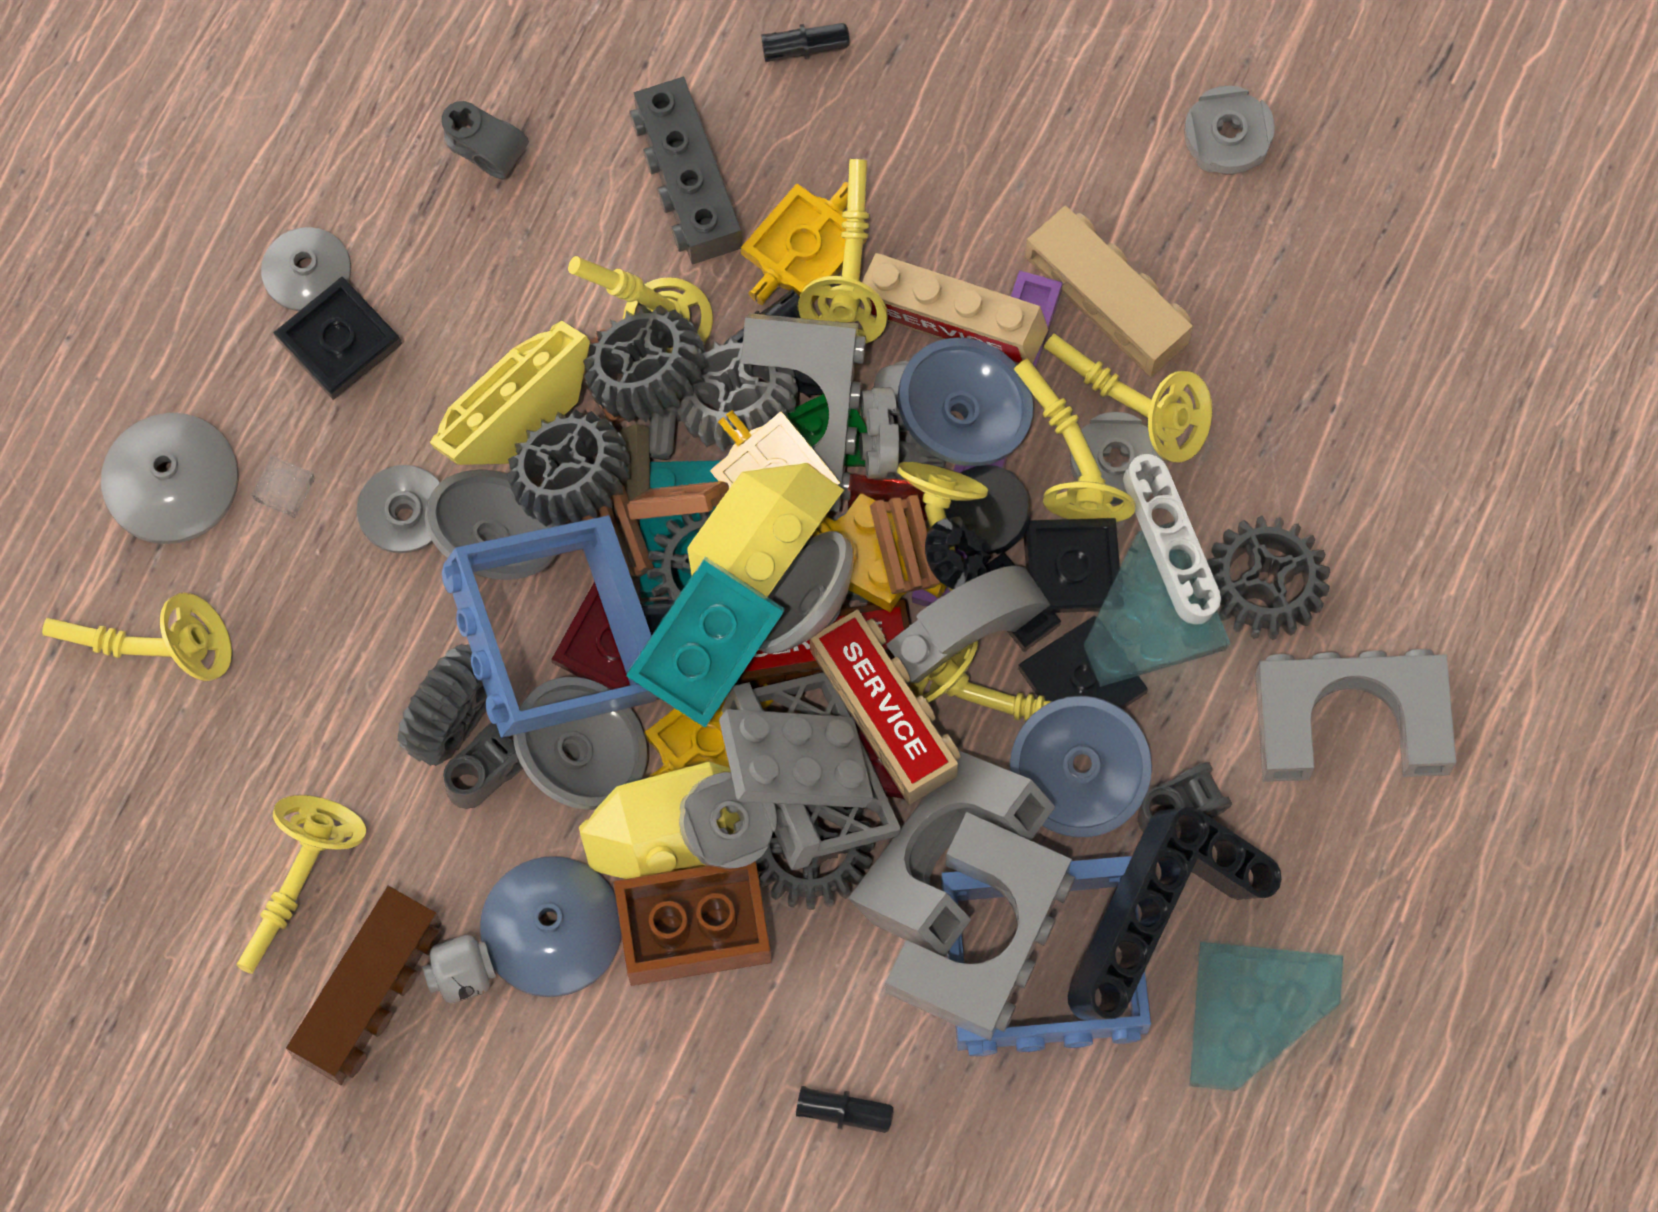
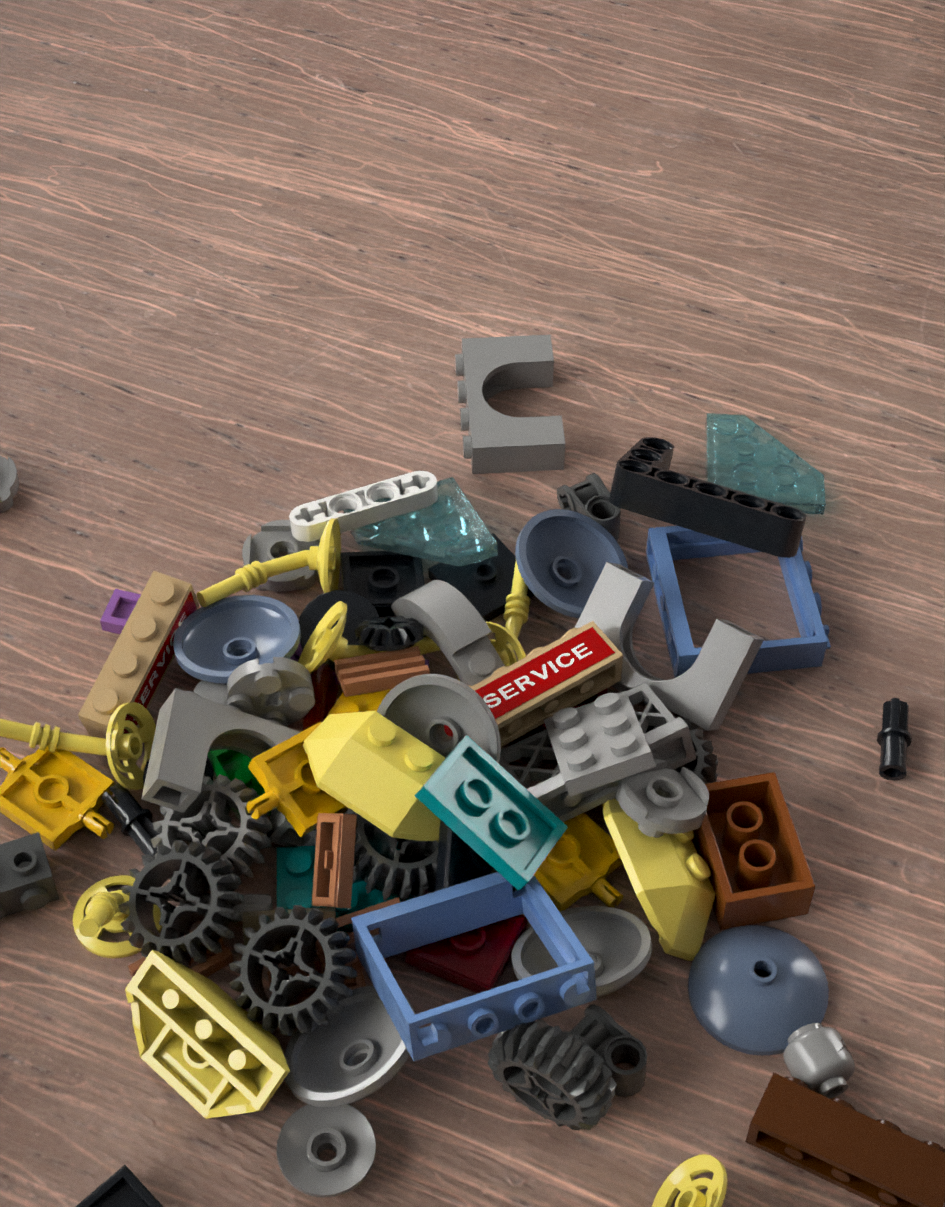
camera: 95 degrees left, 20 degrees down
(980, 993) = (695, 580): light grey arch -> none
(1109, 290) = (124, 559): tan brick -> none
(1161, 414) = (247, 515): light yellow dish -> none
(1299, 560) = (391, 447): dark grey gear -> none

